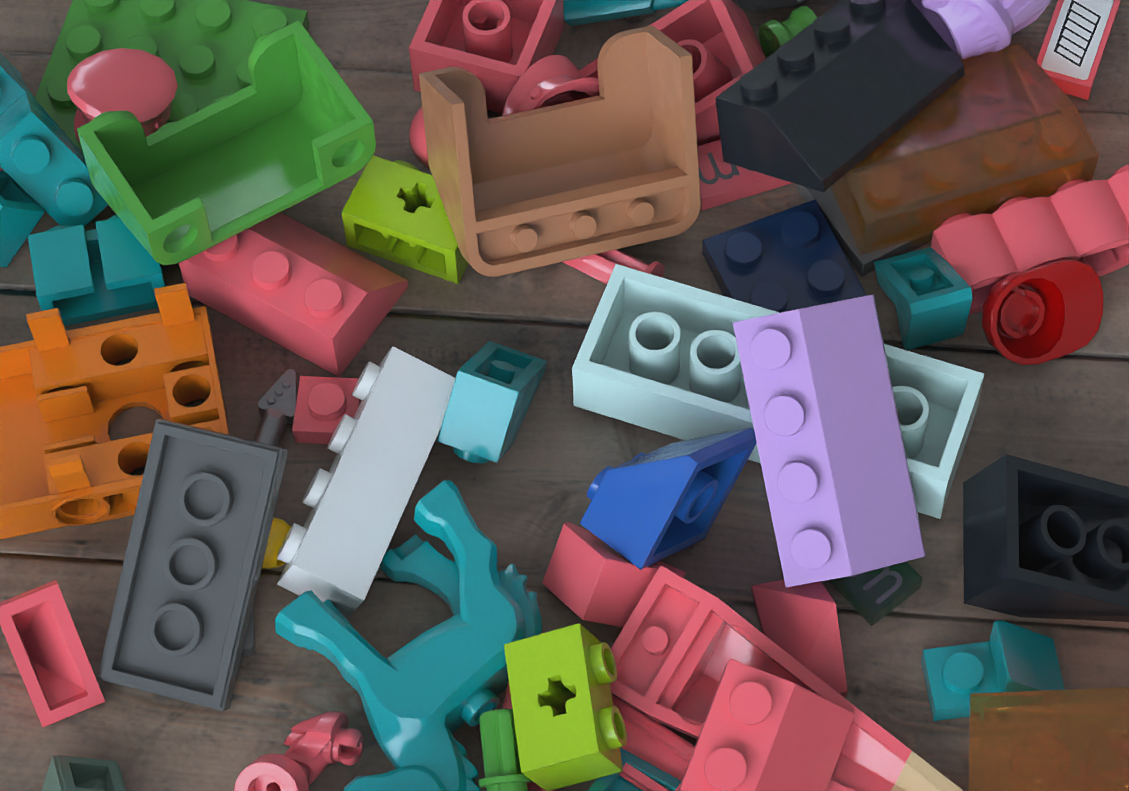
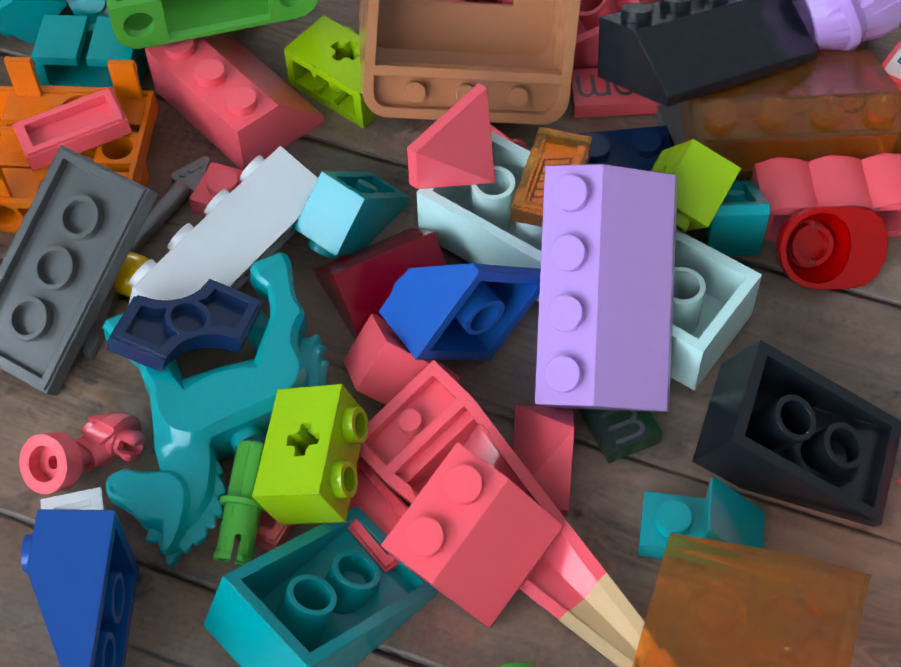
camera: 15 degrees right, 5 degrees down
(131, 381) = (75, 125): none -> coral tile
(349, 608) = (162, 330): none -> dark blue tile
(550, 470) = (365, 279): none -> dark red slope
(607, 305) = (455, 147): none -> coral slope
(718, 296) = (549, 149): none -> clear orange tile
(875, 268) = (702, 182): none -> lime brick

